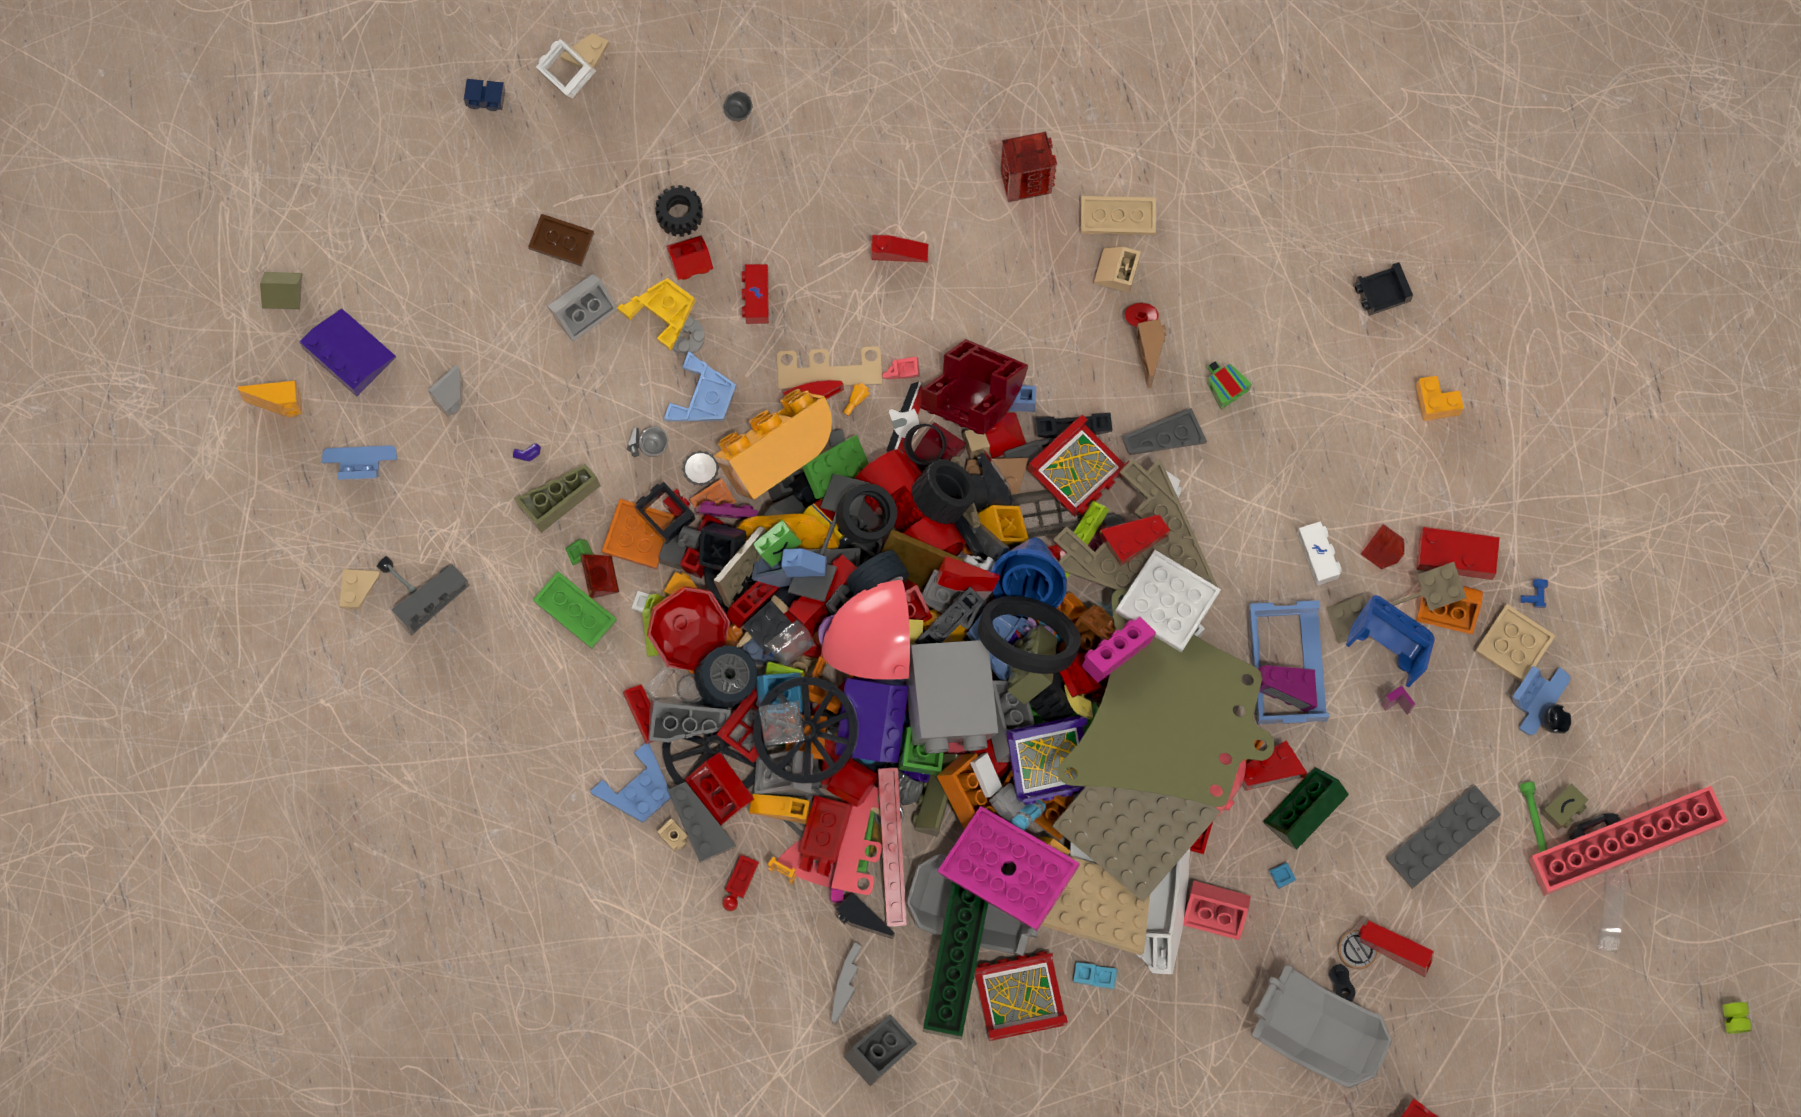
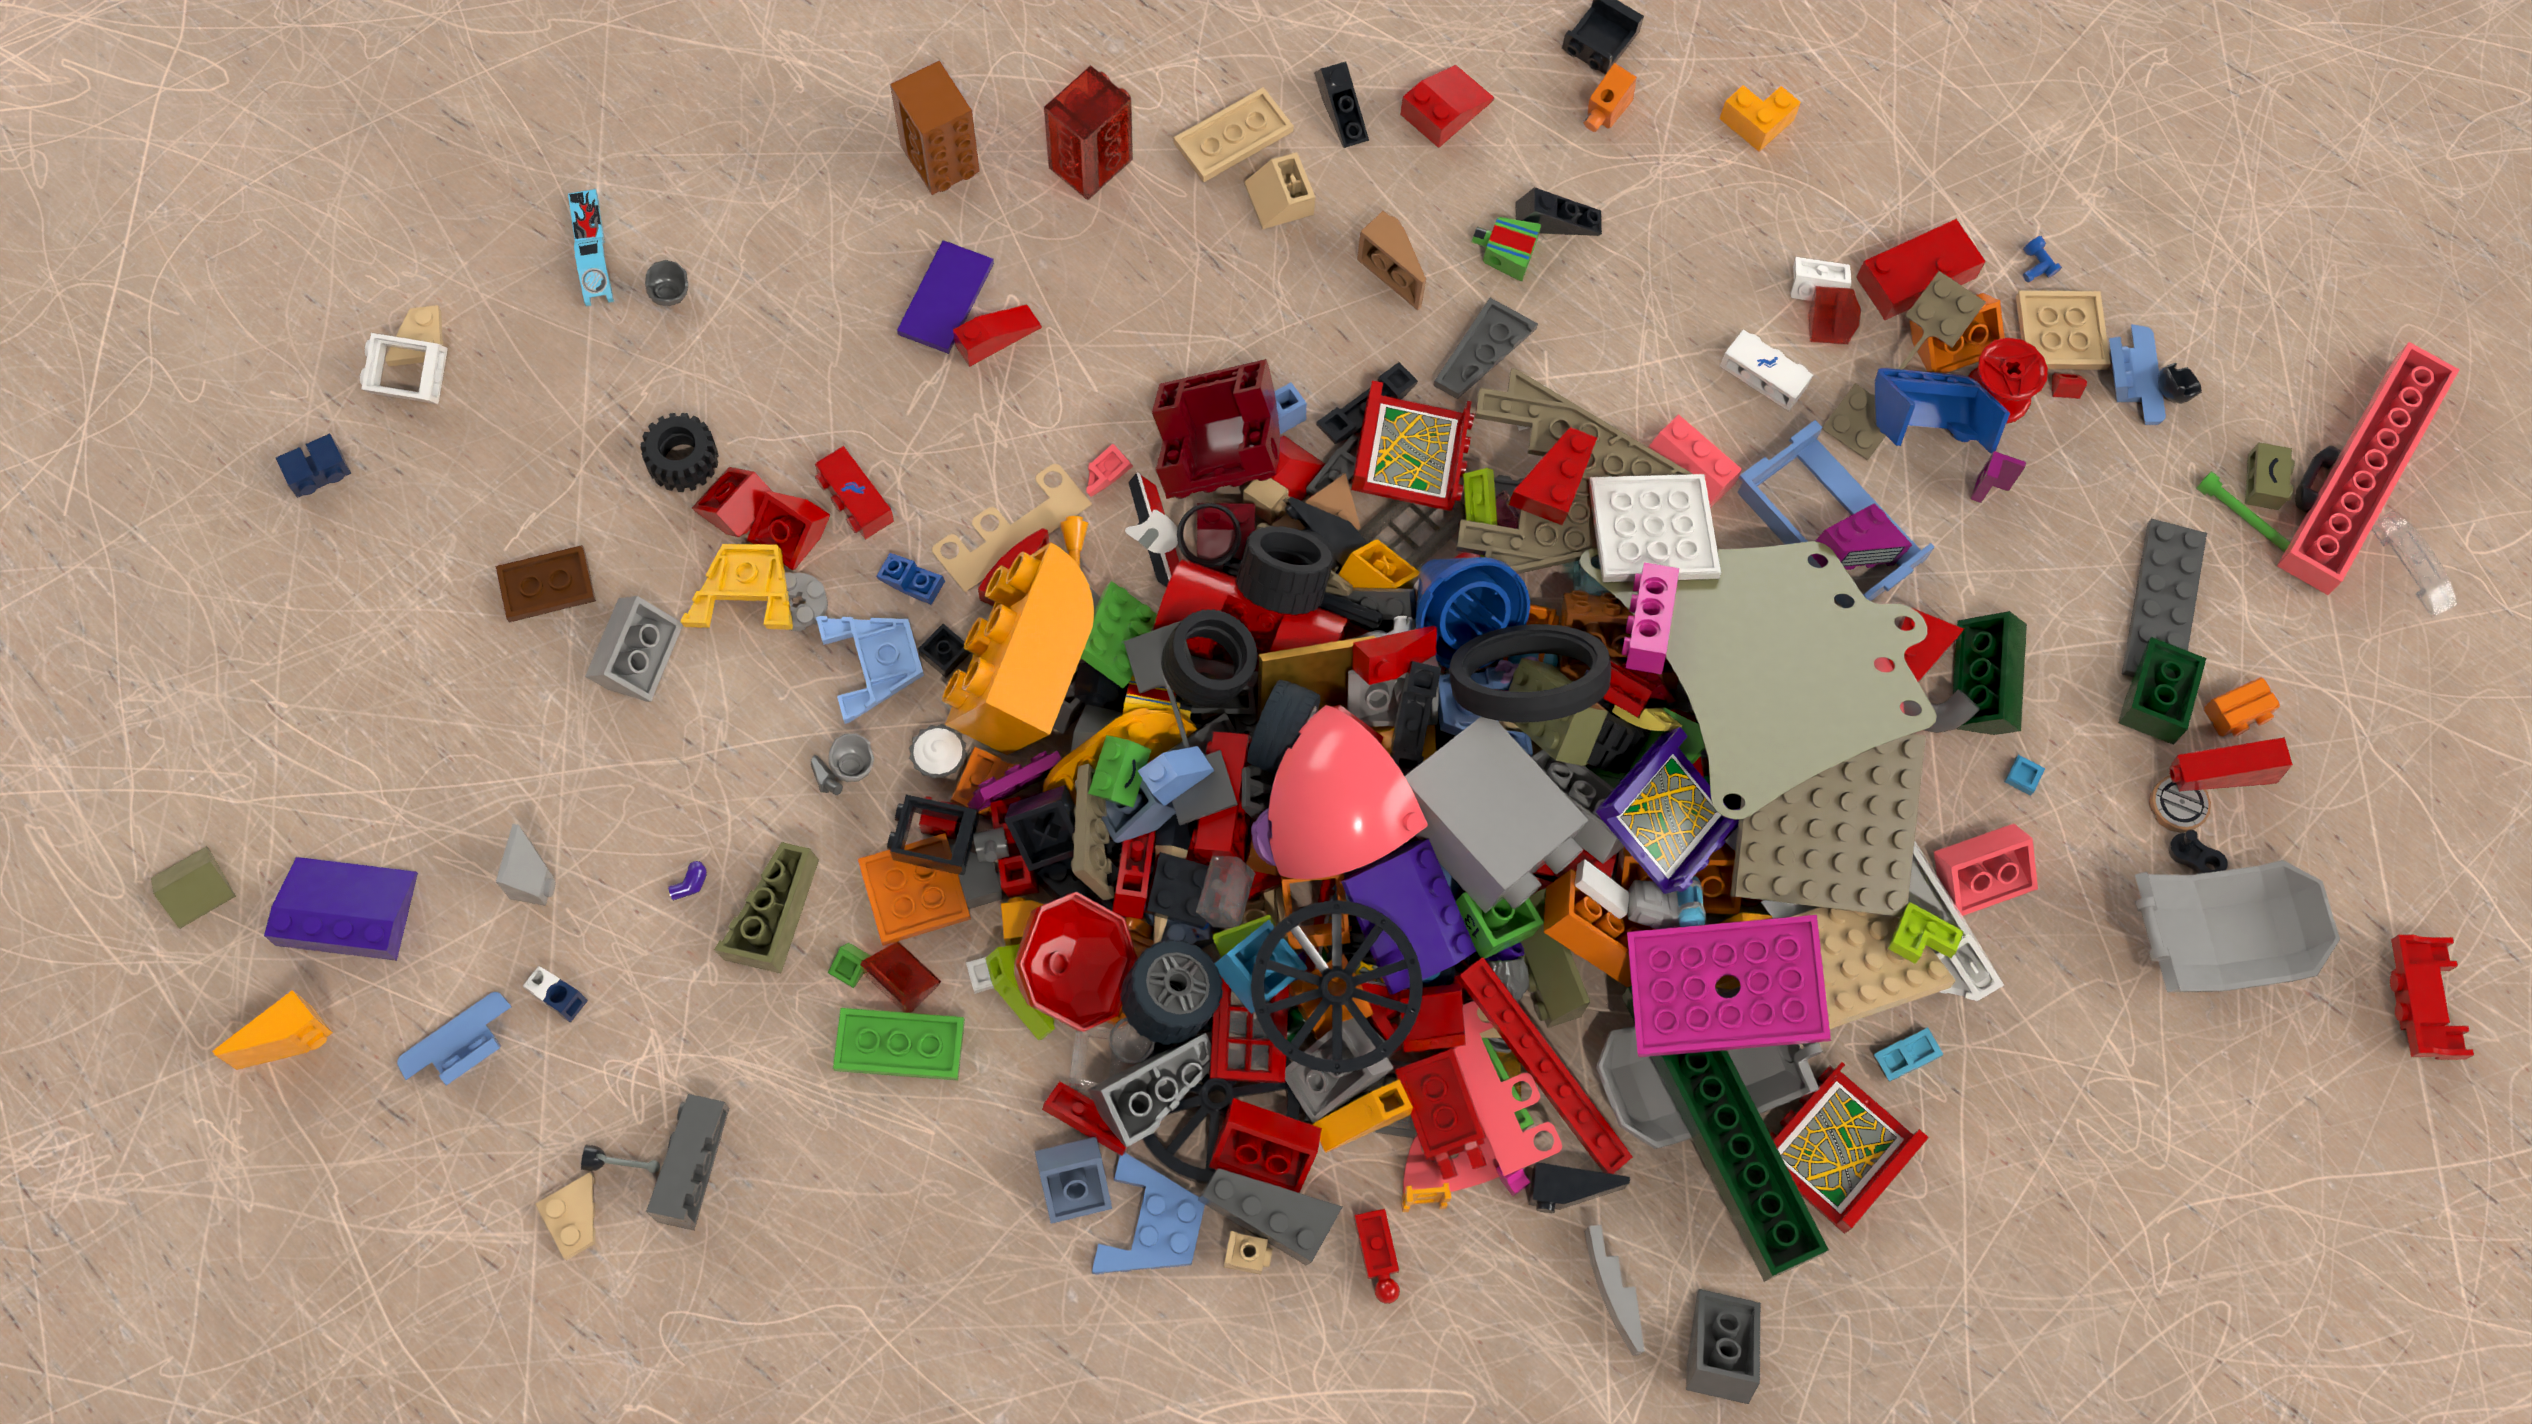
camera: 40 degrees left, 5 degrees down
(422, 467) = (555, 993): none -> dark blue leg
(613, 739) = (1073, 1180): none -> sand blue slope
(709, 290) = (789, 523): none -> red slope
(712, 55) = (589, 245): none -> piece
(742, 413) = (943, 650): none -> black piece
(754, 362) = (909, 579): none -> blue slope
(781, 723) = (1300, 998): clear plate -> none
(886, 210) = (945, 296): none -> dark purple tile
(942, 109) = (935, 127): none -> dark orange brick
(1140, 313) = (1346, 228): red piece -> none
(1147, 913) = (1922, 928): none -> lime plate
(1194, 237) = (1342, 103): none -> black slope
(1232, 578) = (1696, 454): none -> coral slope
(1255, 810) = (1950, 714): none -> dark grey cylinder
(1257, 273) = (1444, 104): none -> red slope
(1270, 384) = (1558, 214): none -> black slope
(1359, 333) = (1610, 98): none -> orange torso
(1395, 518) = (1814, 273): none -> white bracket
(1396, 882) = (2163, 691): none -> dark green slope
(1436, 922) = (2242, 707): none -> orange brick
(1451, 650) = (2011, 374): none -> red piece
(1492, 677) = (2068, 385): none -> red slope

